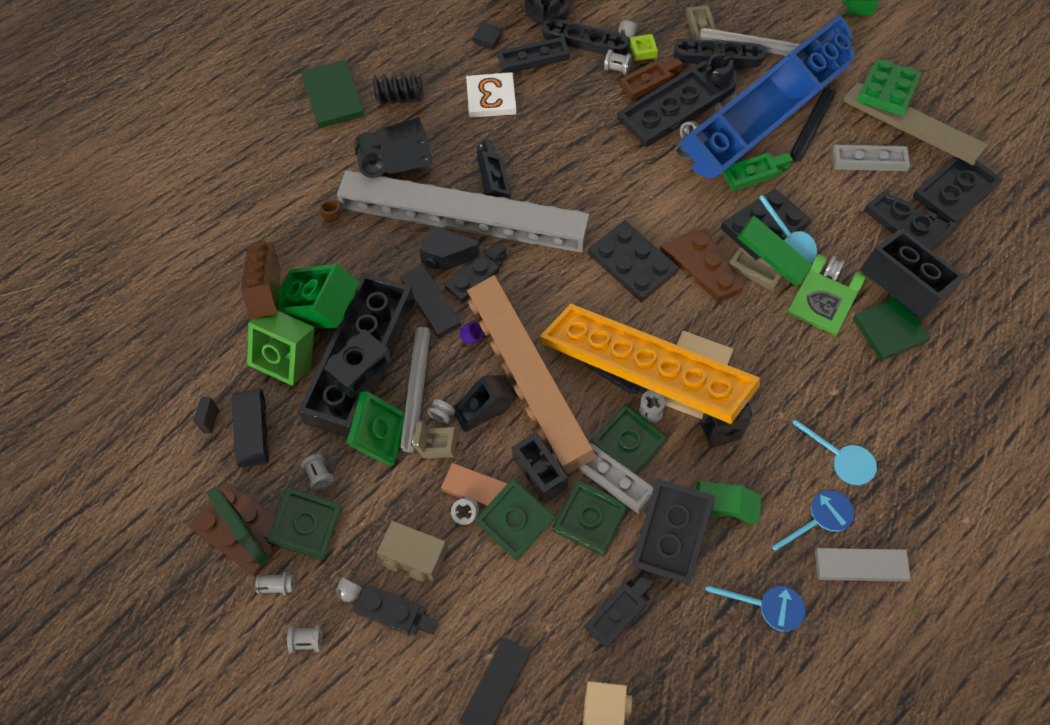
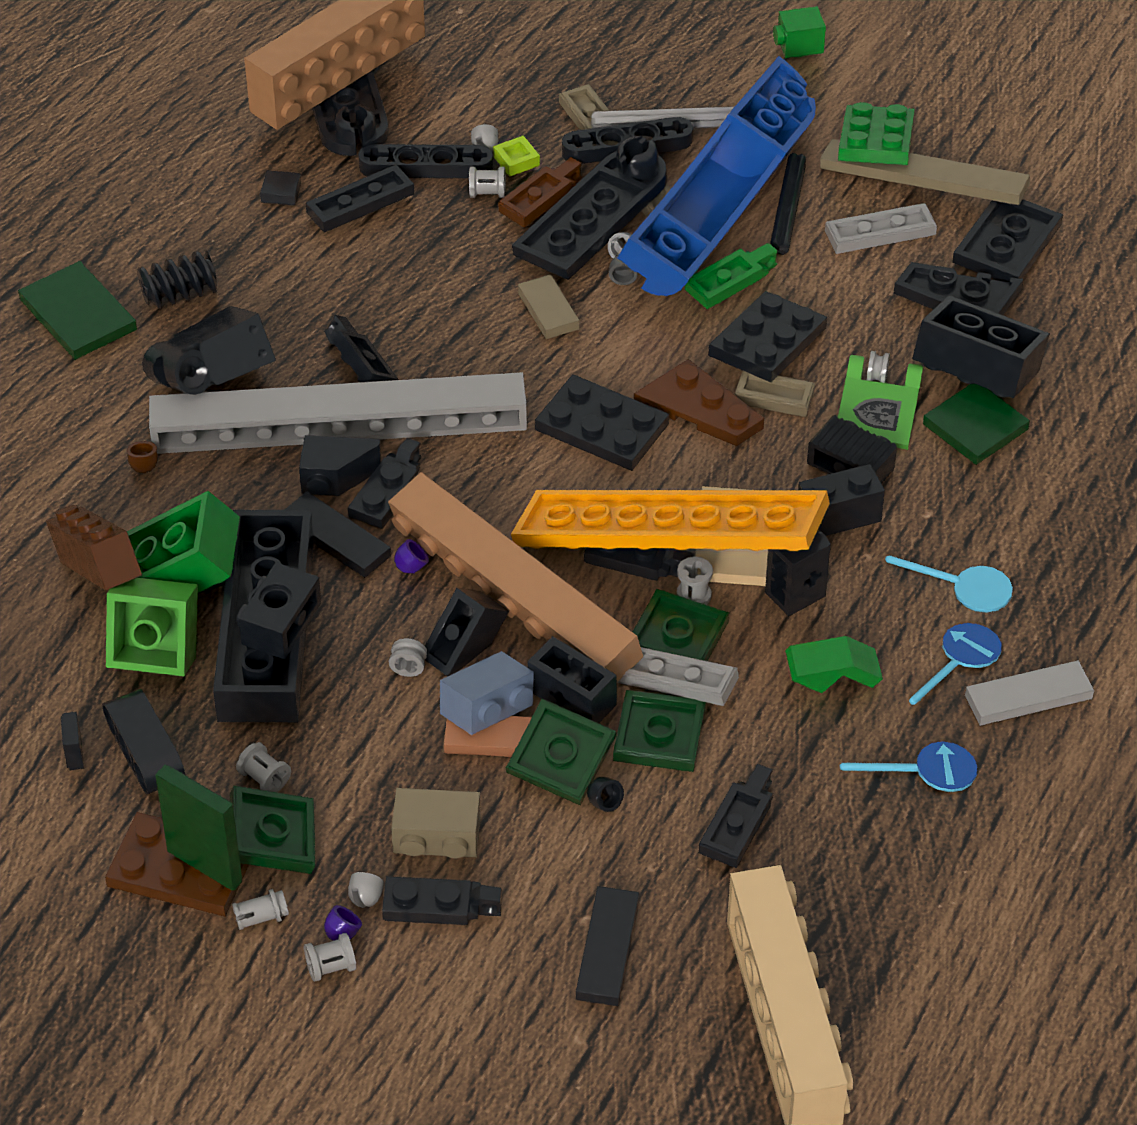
camera: 20 degrees left, 15 degrees down
(324, 612) = (341, 921): none -> dark purple hinge
(376, 428) = (330, 691): green tile -> none
(415, 387) = (359, 643): light grey axle -> none
(434, 441) = (412, 694): dark tan bracket -> none
(467, 519) = (484, 749): light grey bush -> none
(480, 459) = (486, 692): none -> sand blue brick
(491, 95) = (317, 262): white tile -> none
(538, 566) = (610, 788): none -> black hinge
(627, 163) = (548, 306): none -> dark tan tile
(673, 531) = (777, 702): black brick -> none
(774, 251) = (792, 361): green tile -> none
(776, 368) = (854, 498): none -> black brick
(794, 333) = (845, 446): none -> black brick
(799, 241) = (819, 353): medium azure piece -> none

